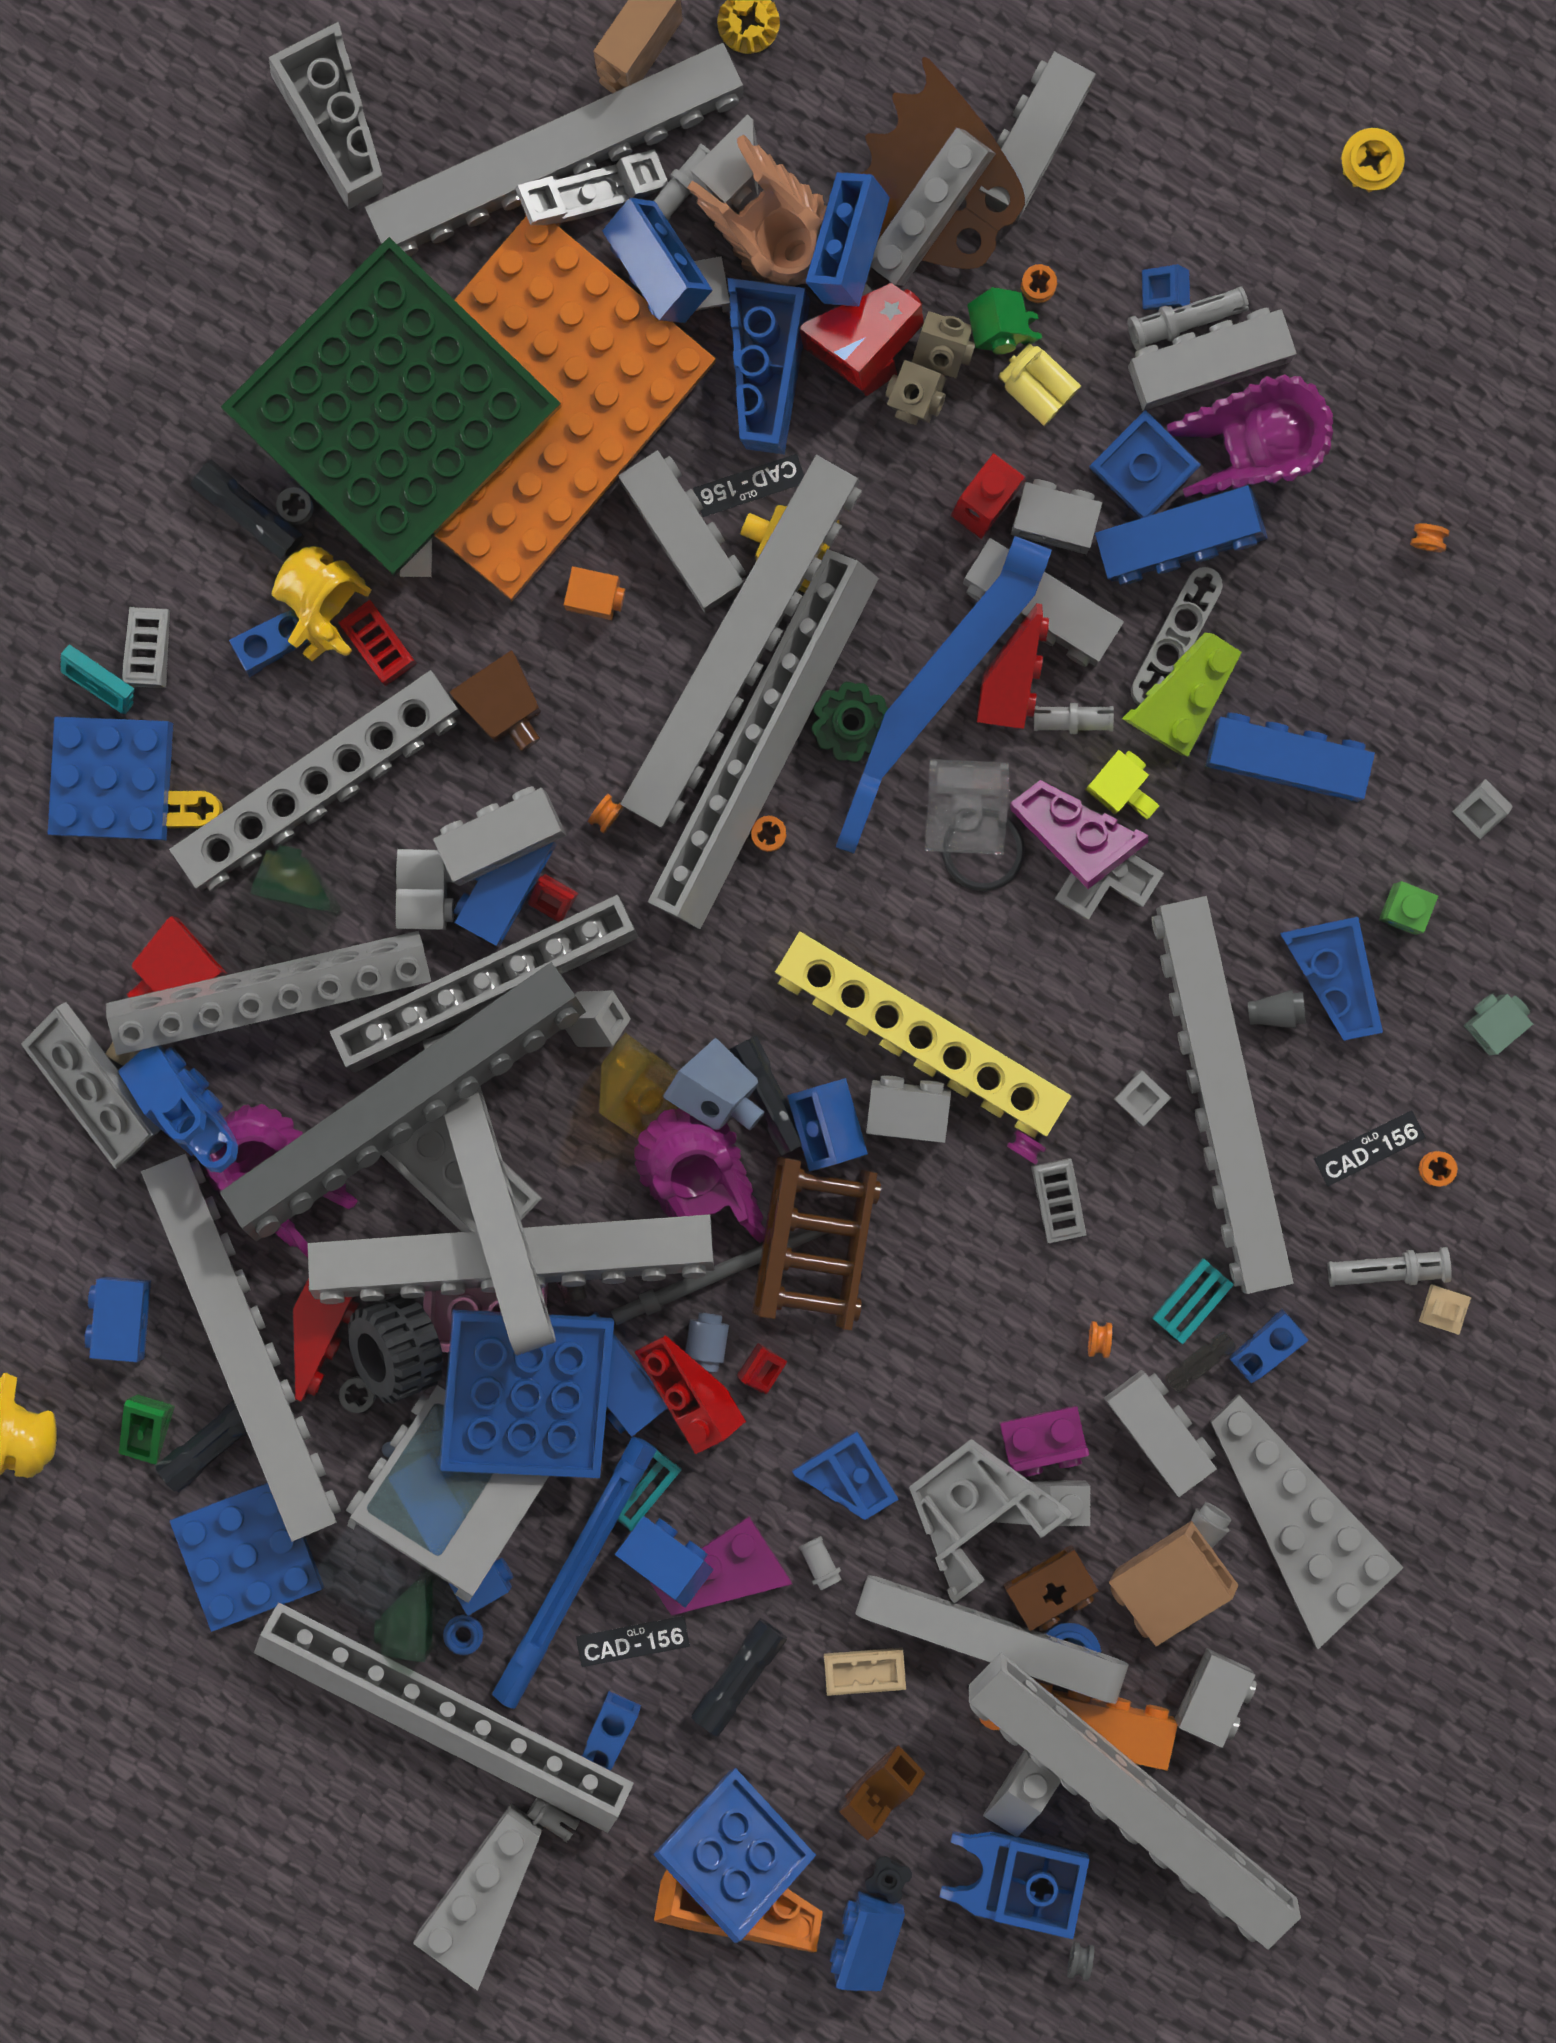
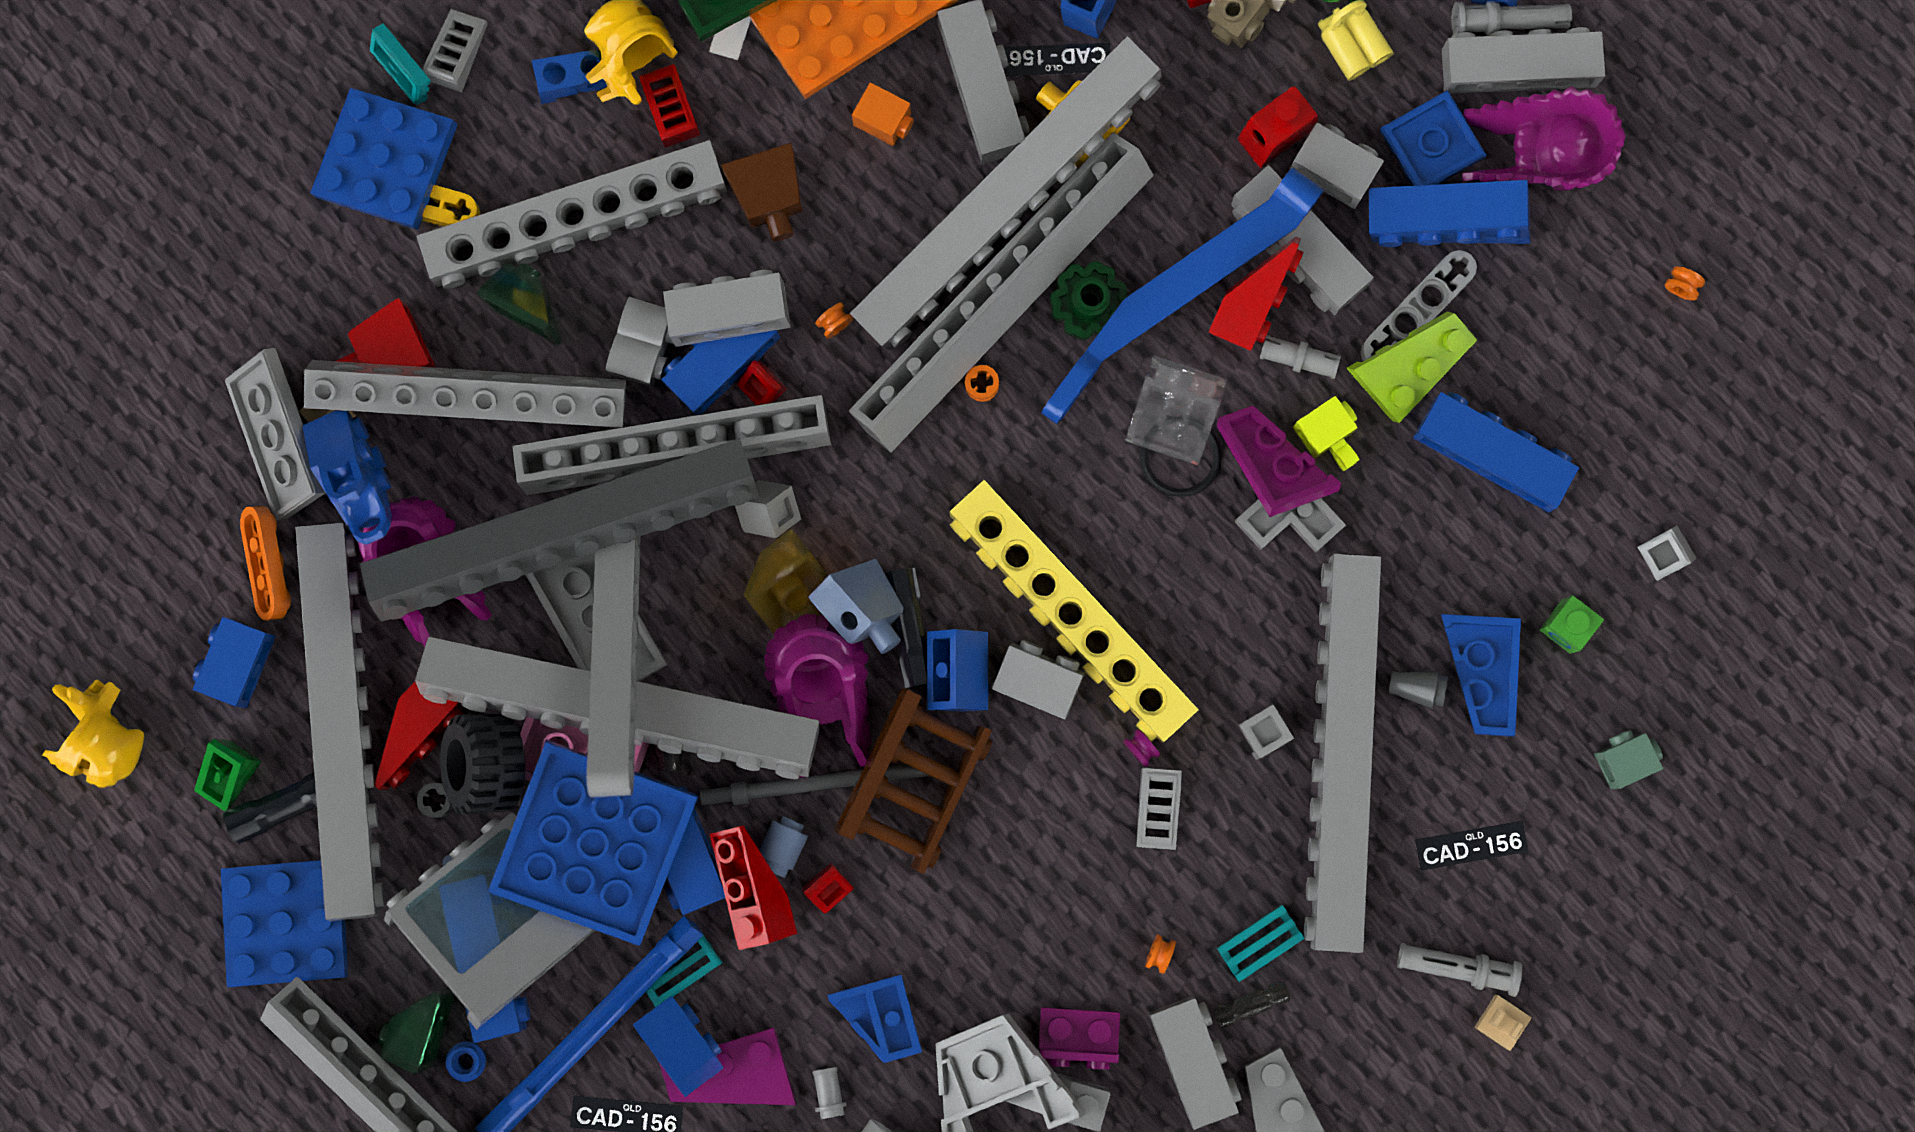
camera: 20 degrees right, 5 degrees down
(118, 1213) = (264, 563): none -> orange plate
(1268, 1347) = (1321, 1009): blue leg -> none
(1448, 1163) = (1520, 885): orange bush -> none

